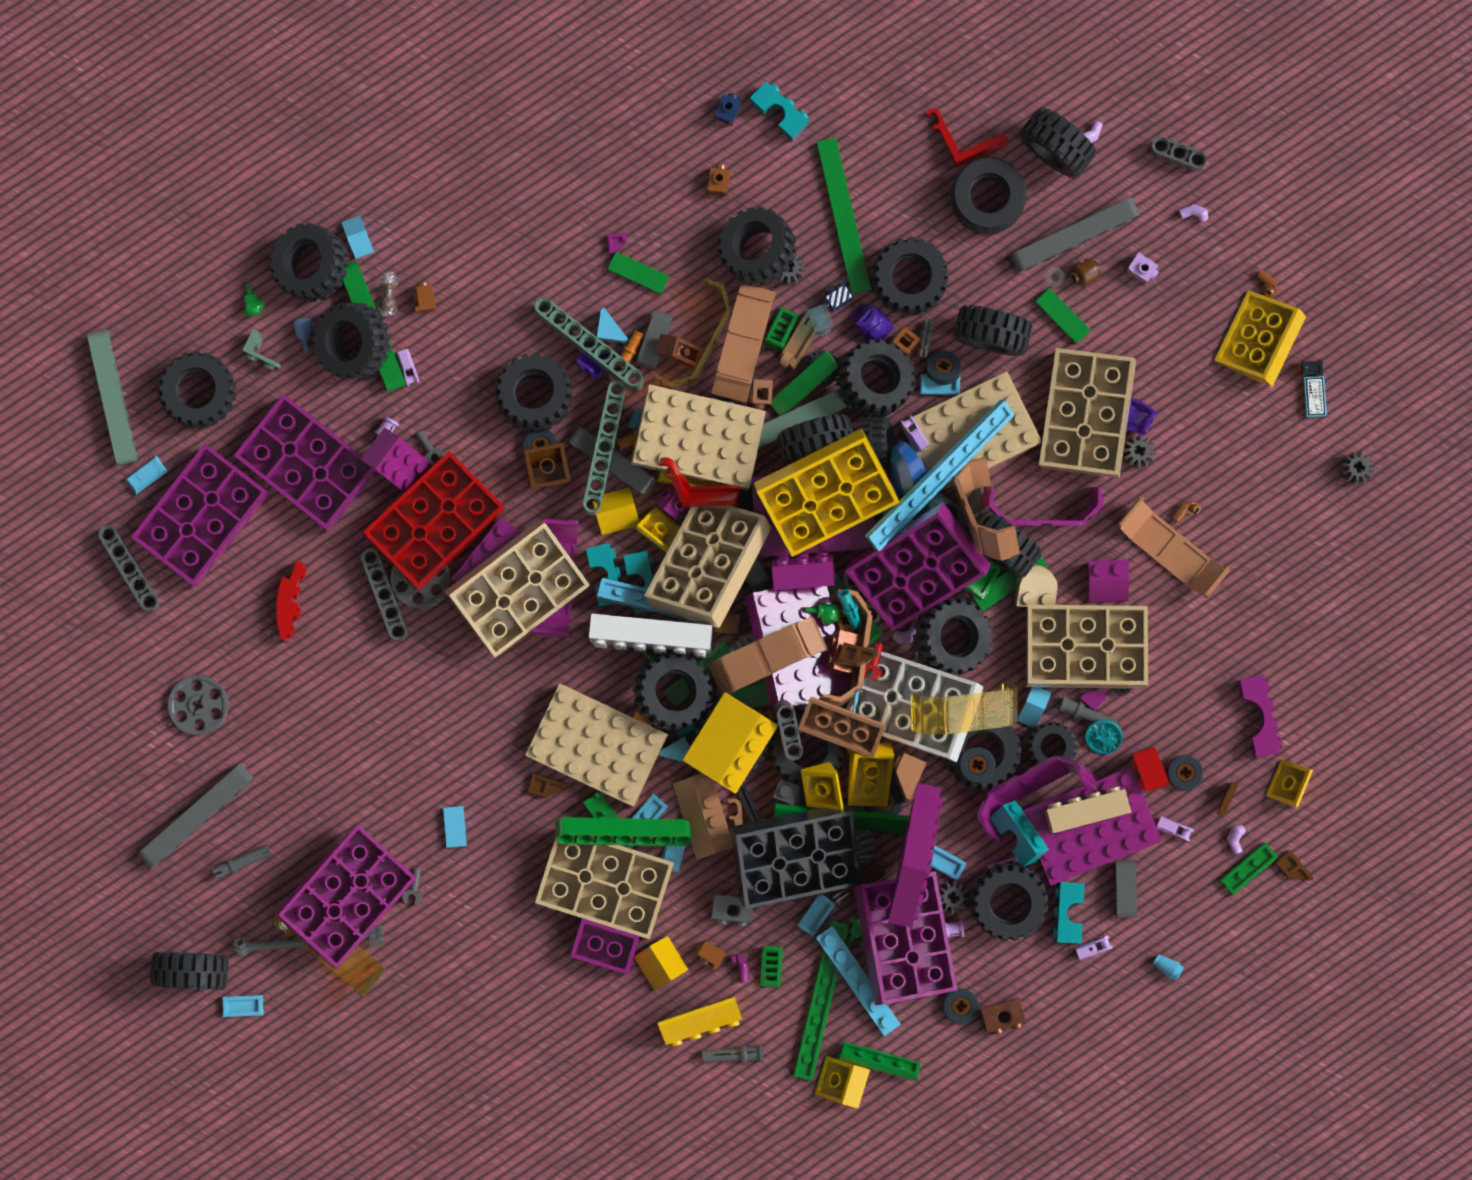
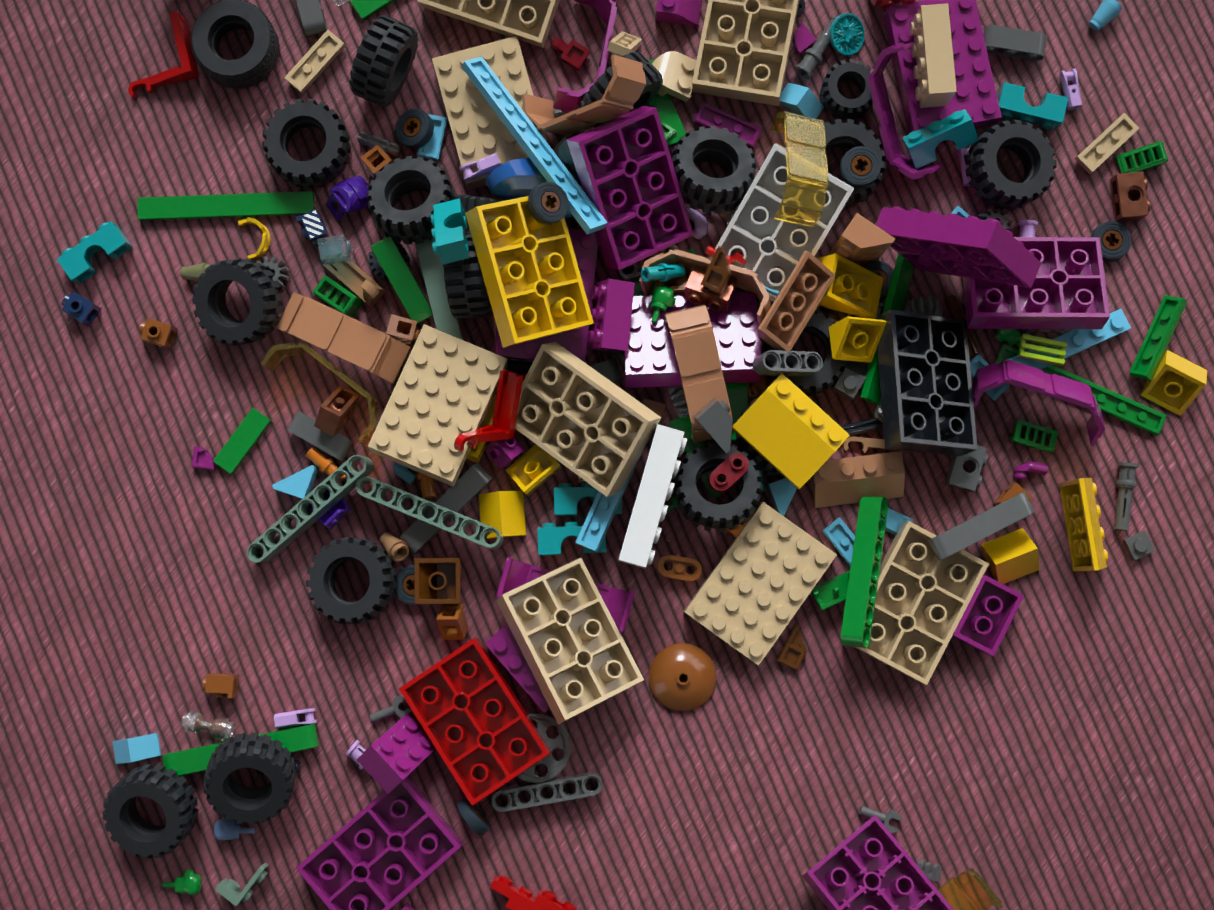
camera: 80 degrees left, 0 degrees up
(352, 535) = (473, 817): none -> black bush
(455, 827) = (821, 758): medium azure tile -> none
(514, 485) = (452, 622): none -> dark orange brick
(515, 703) = (679, 660): none -> dark orange dish
(569, 424) = (395, 548): none -> medium nougat cone
(597, 673) = (679, 567): none -> dark orange plate
(680, 926) = (981, 526): none -> dark grey beam
(684, 697) = (729, 472): none -> dark red plate
(692, 1074) = (1138, 545): none -> dark grey plate
(725, 677) = (717, 422): none -> dark grey slope
(779, 203) = (194, 271): none -> olive cone
(814, 961) = (1038, 381): none -> magenta windscreen
(820, 257) = (266, 238): none -> yellow helmet
(838, 419) = (448, 231): none -> teal arch
(847, 956) = (1042, 341): none -> lime tile
(882, 506) = (543, 193): none -> black bush
(988, 267) = (315, 61): none -> tan plate
(1001, 645) = (713, 116): none -> magenta tile
(1039, 494) = (572, 53): none -> dark red plate
(1049, 988) = (1107, 143): none -> tan plate
(1049, 1036) = (1156, 155): none -> green slope
(1051, 538) = (624, 44): none -> tan plate

